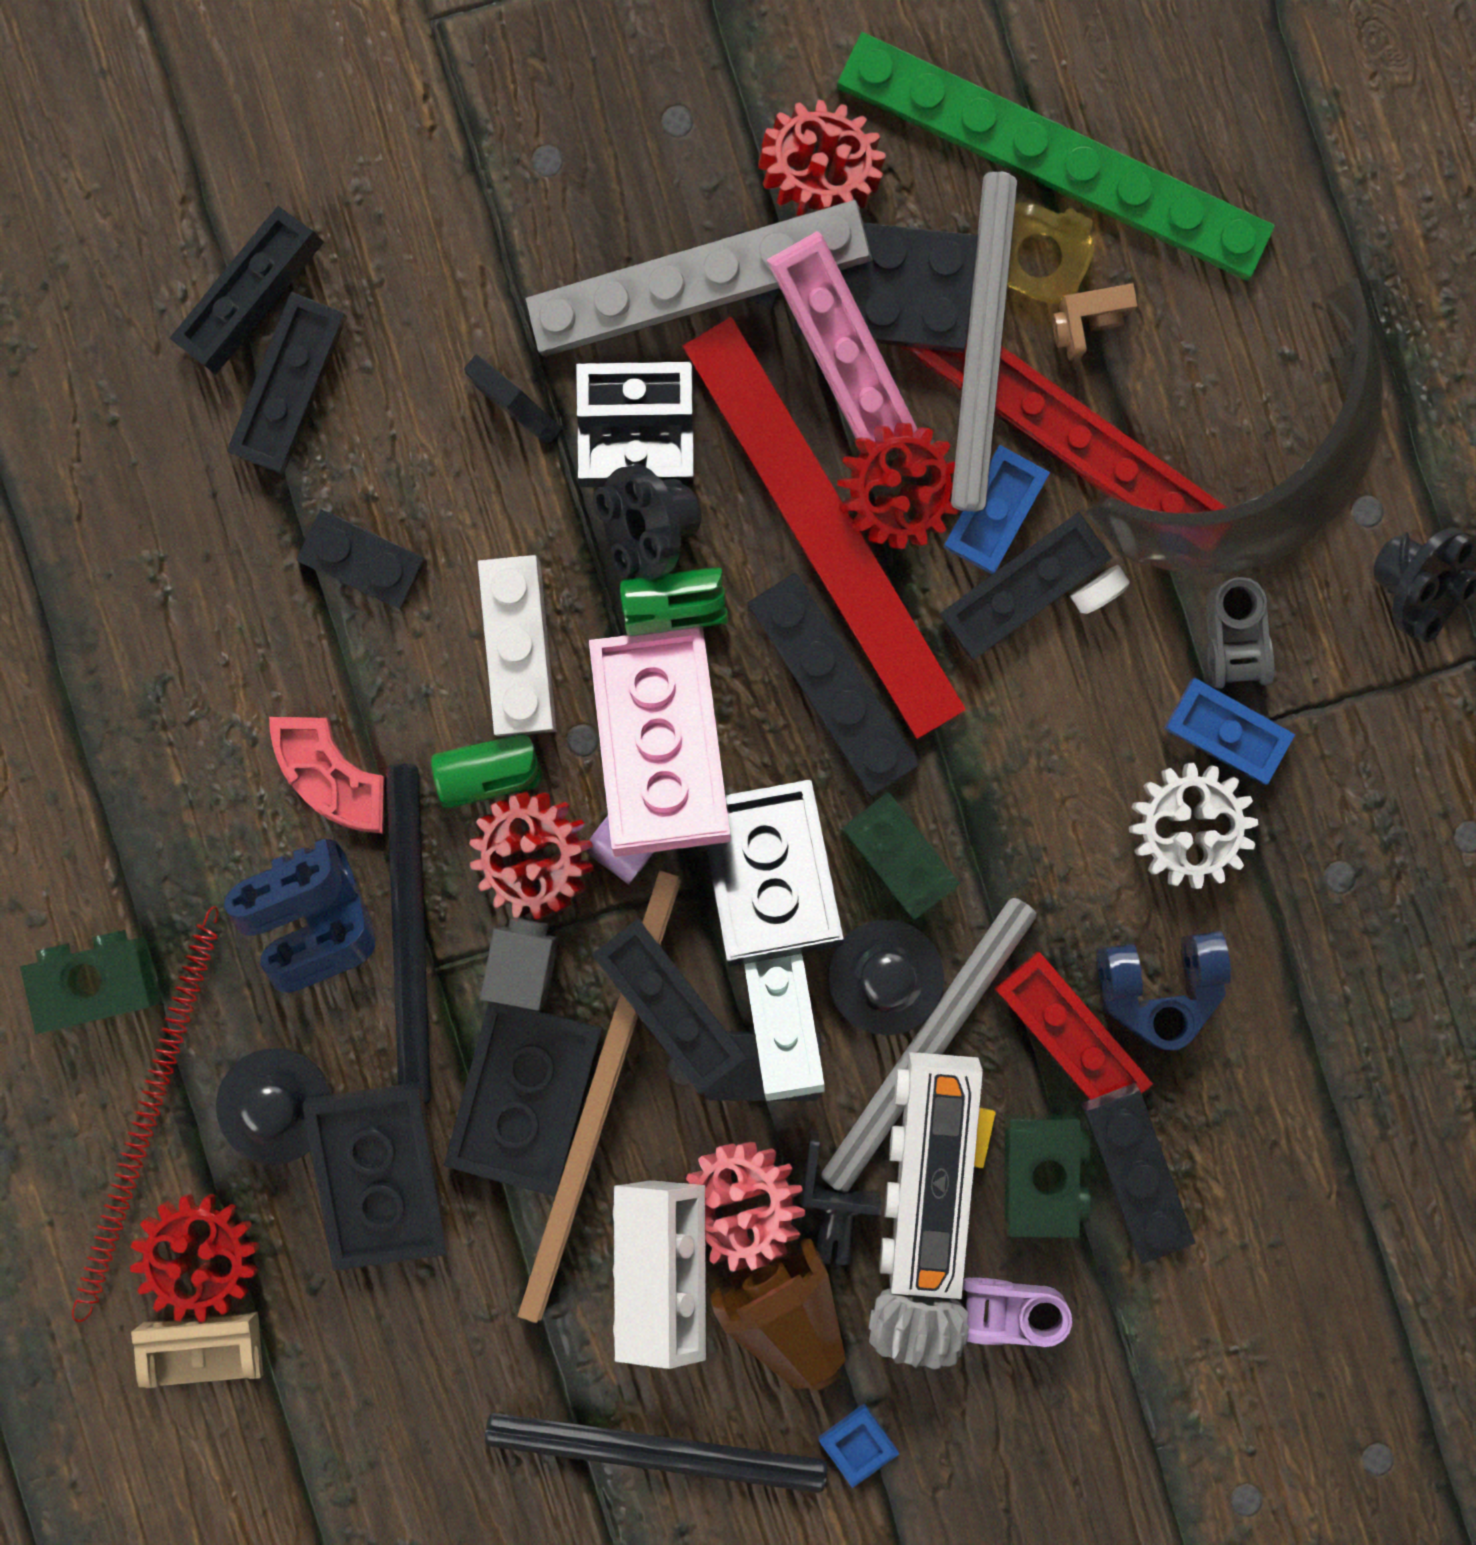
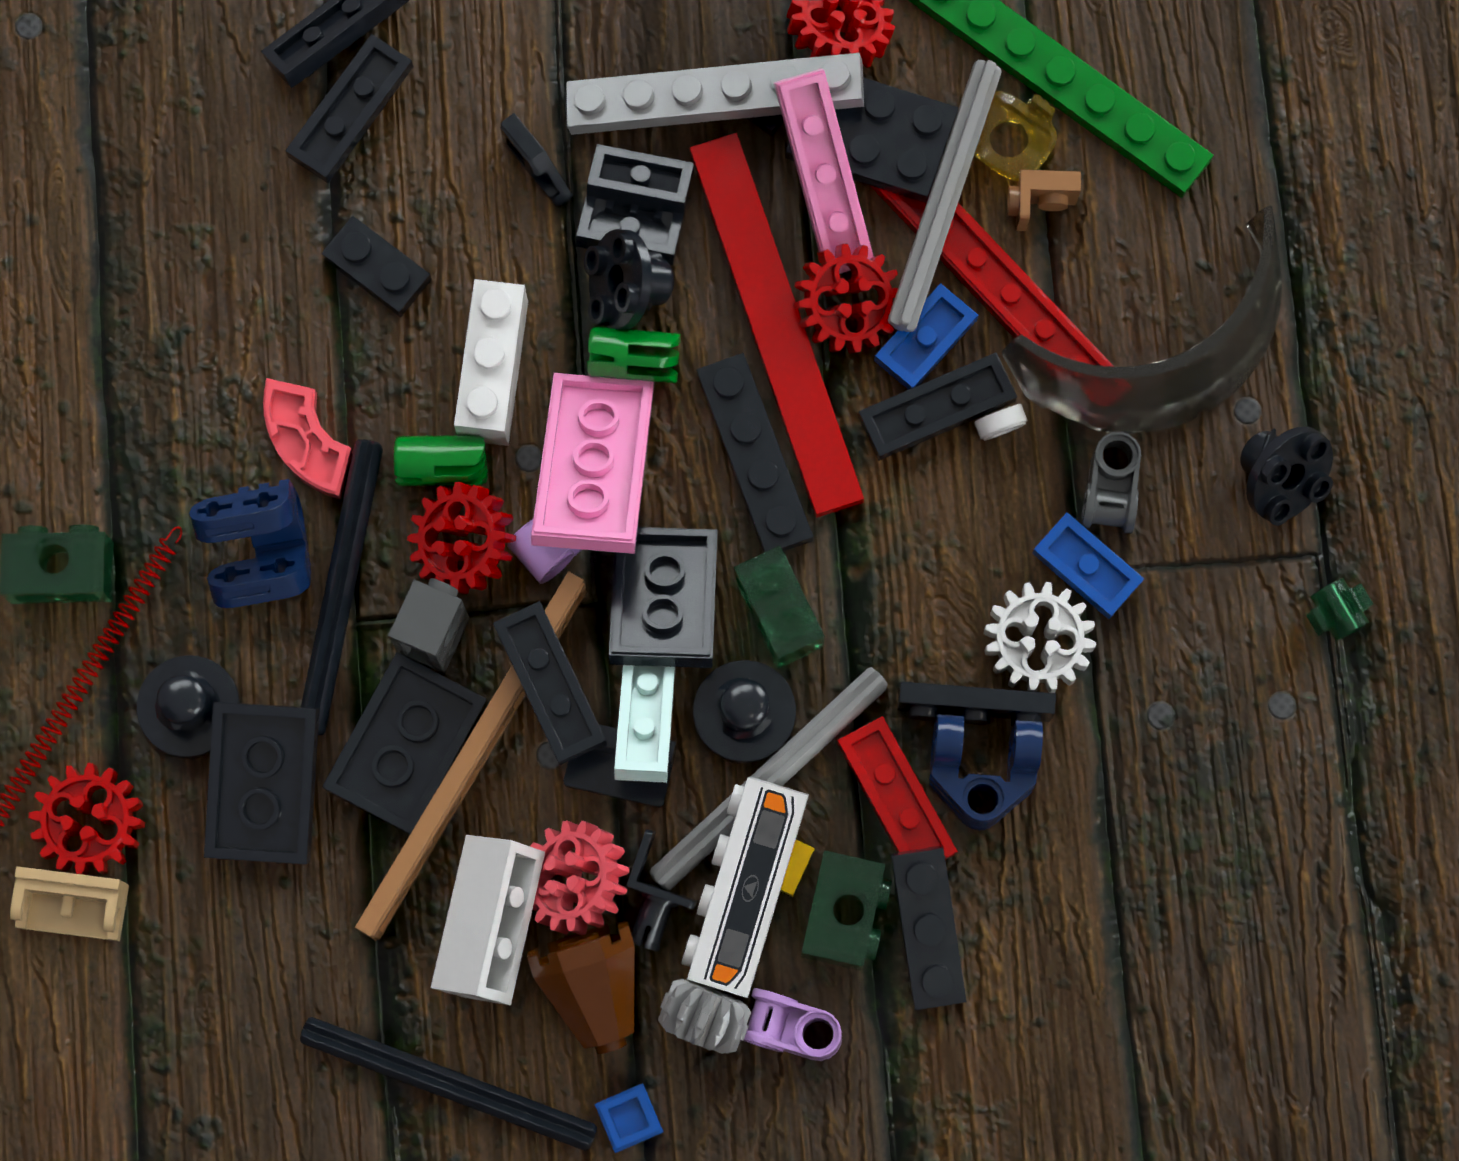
camera: 15 degrees right, 10 degrees down
(1139, 916) = (974, 703): none -> black plate

